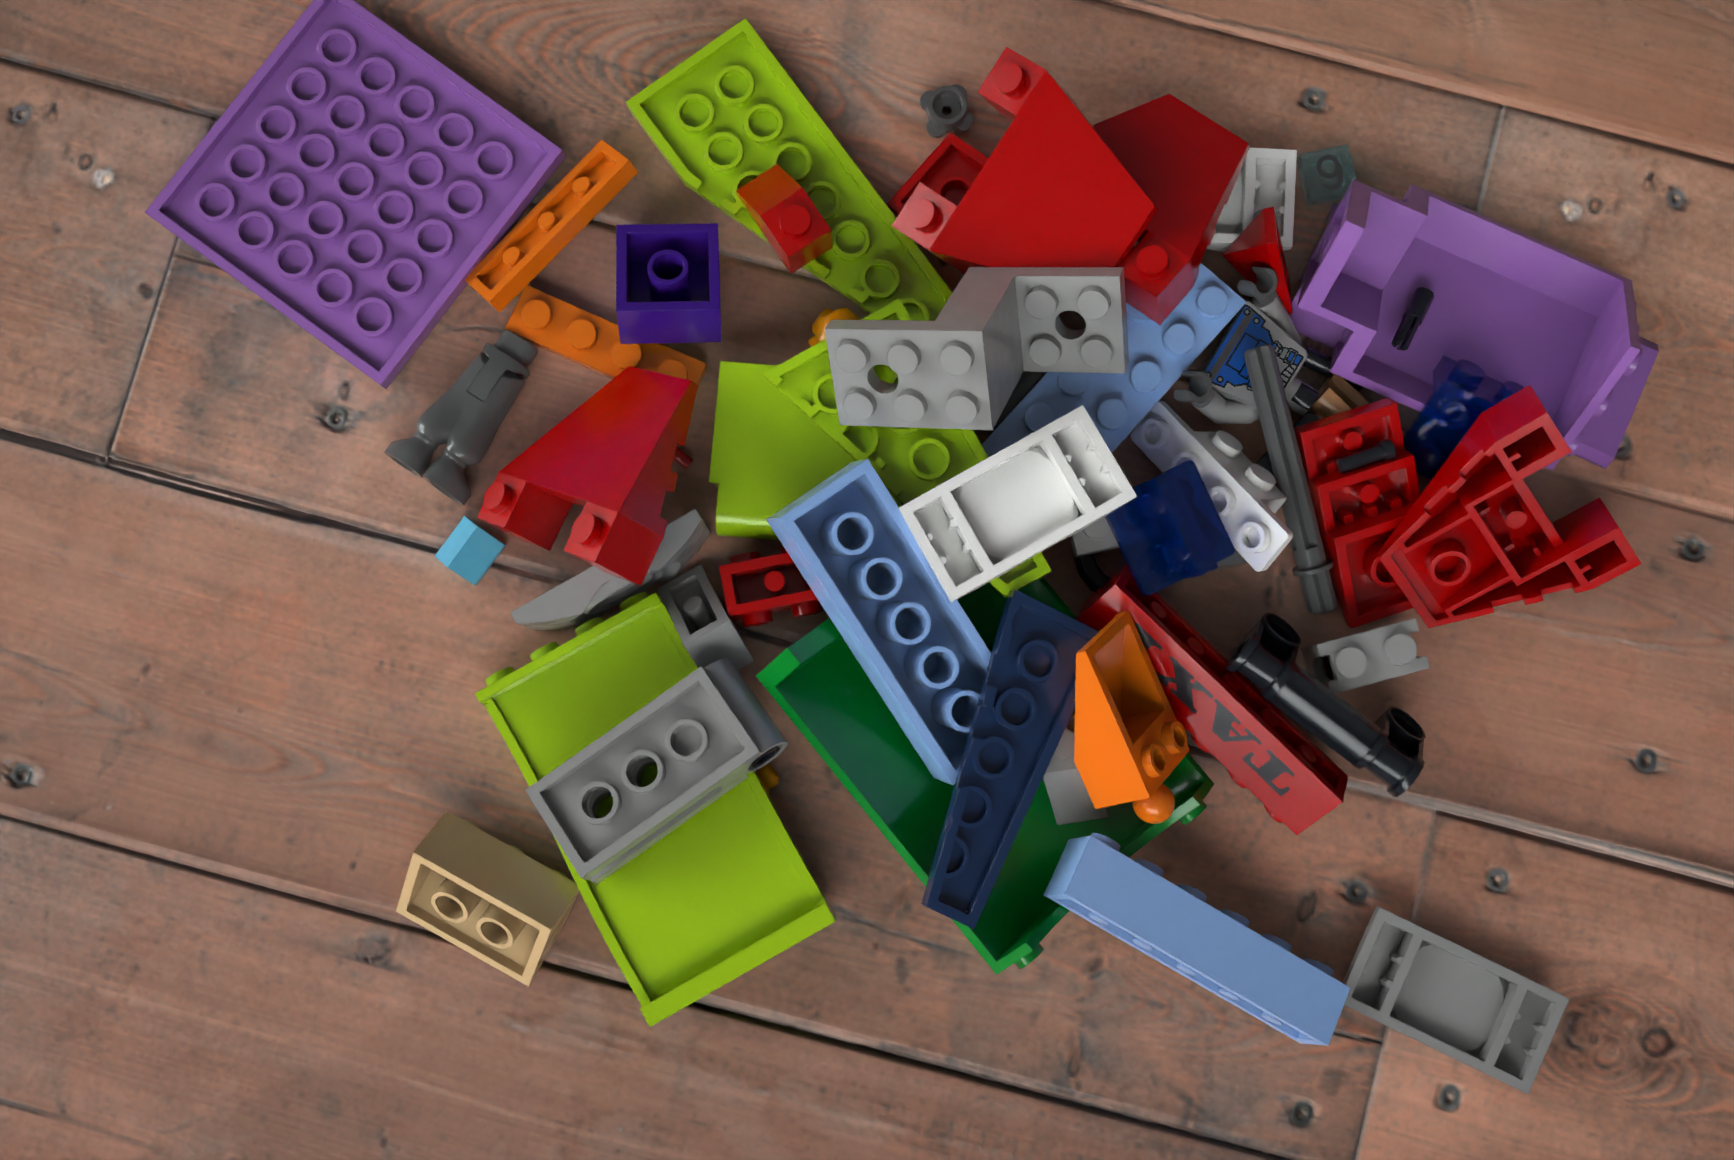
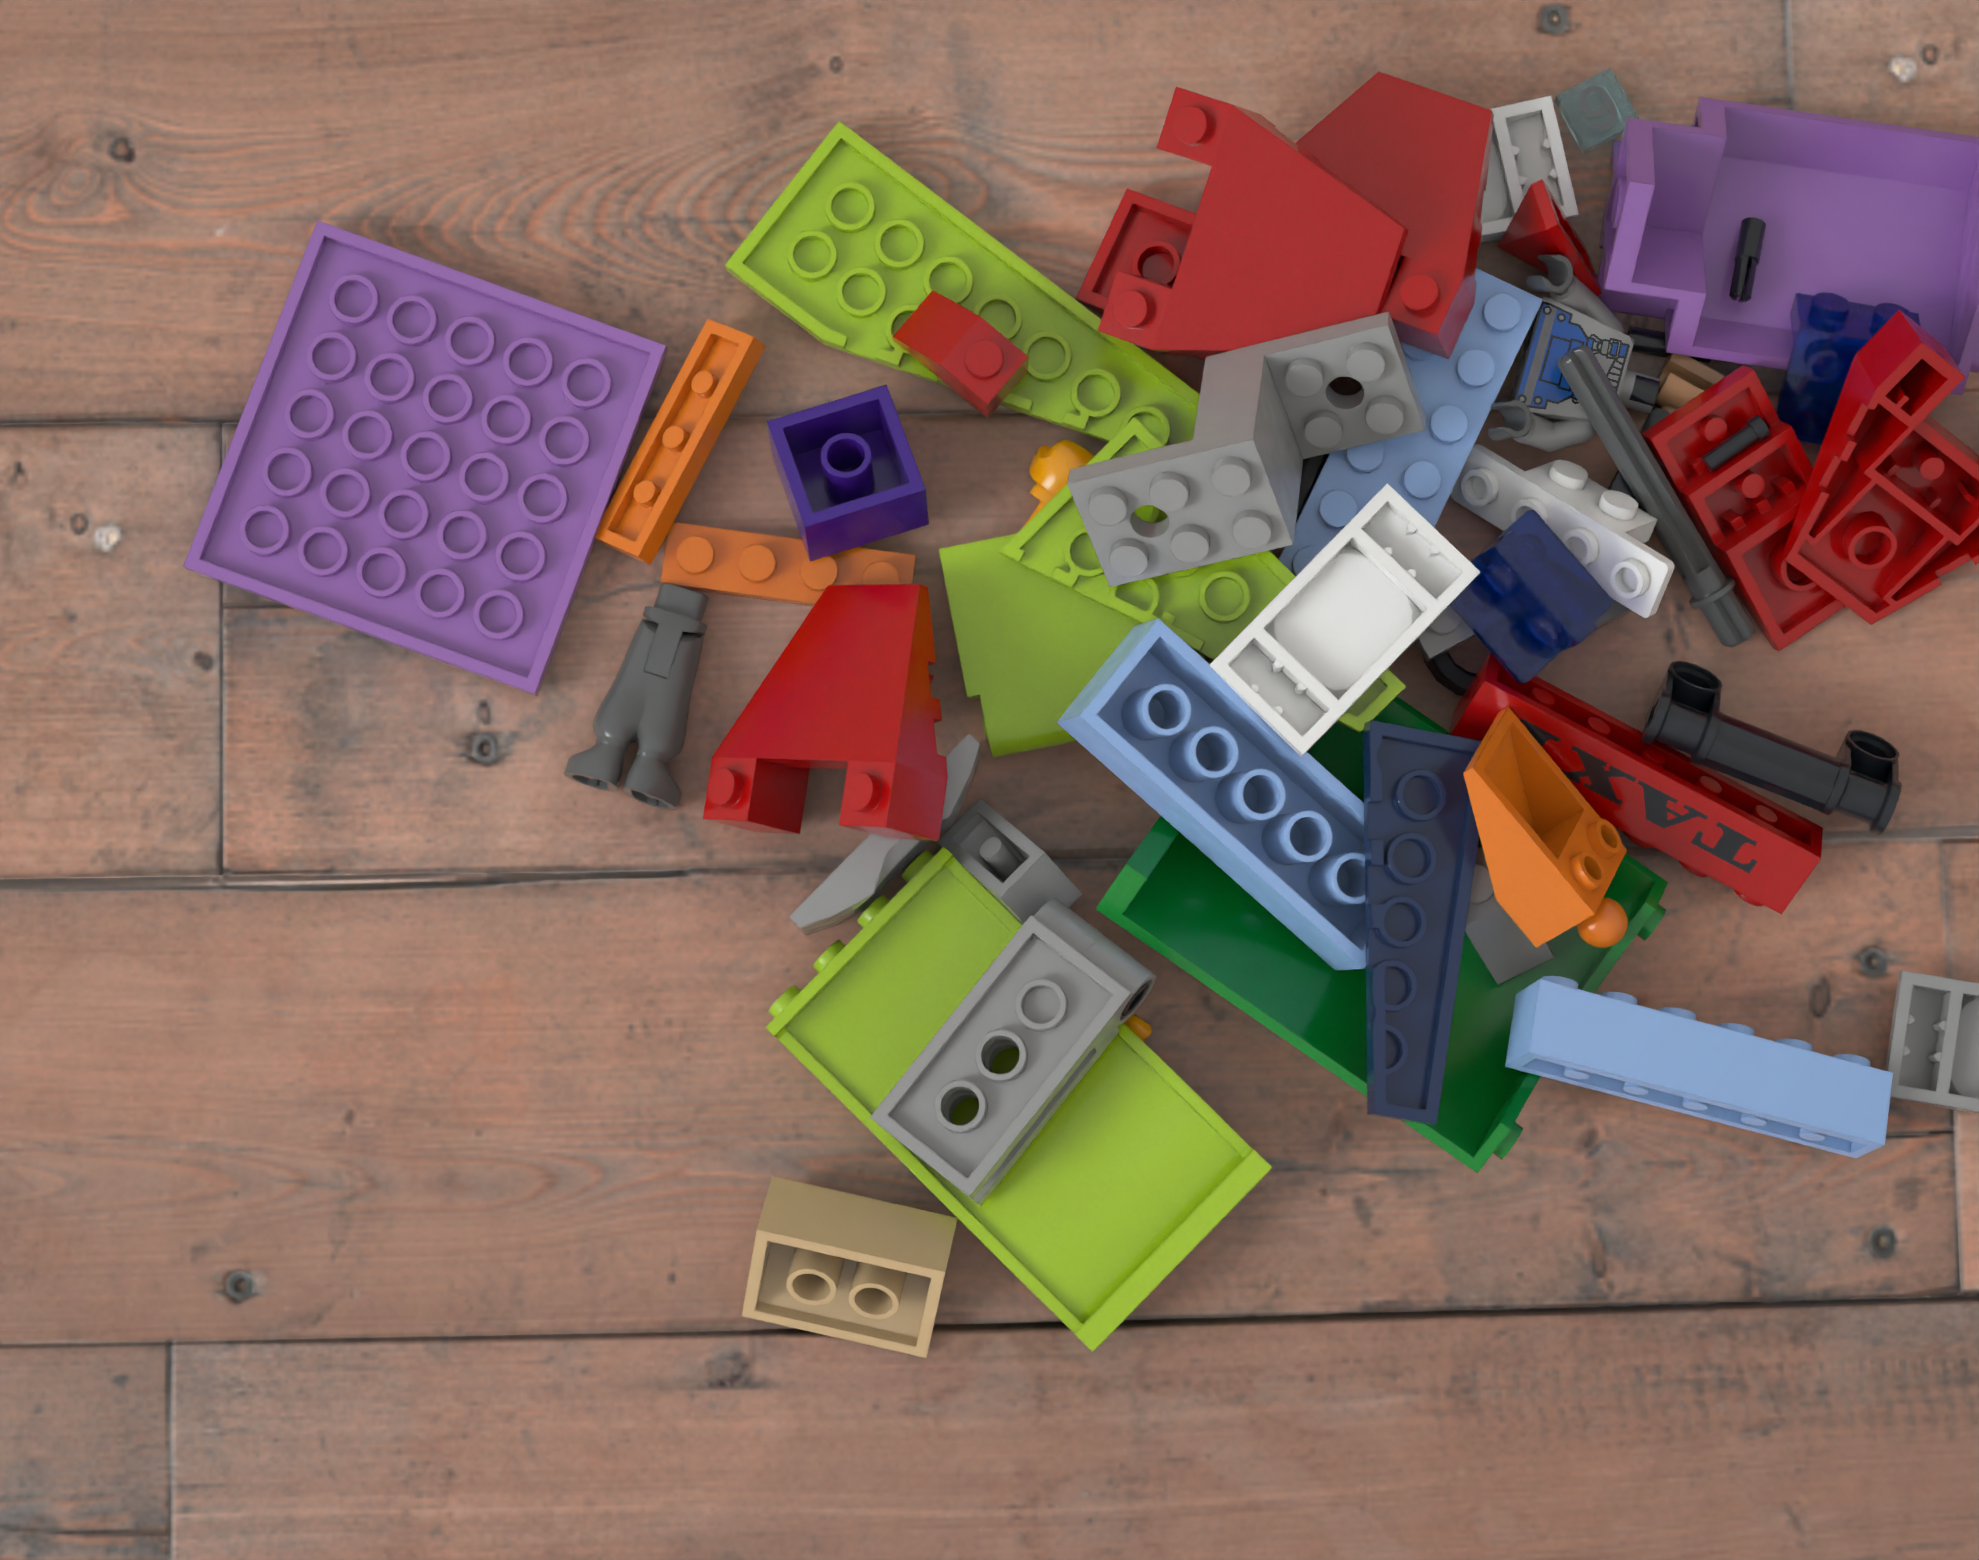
camera: 15 degrees left, 0 degrees up
(469, 551) = (698, 861): medium azure slope -> none
(764, 586) = (1071, 800): red brick -> none
(950, 97) = (1117, 145): flat silver plate -> none
(1366, 656) = (1803, 680): light grey brick -> none

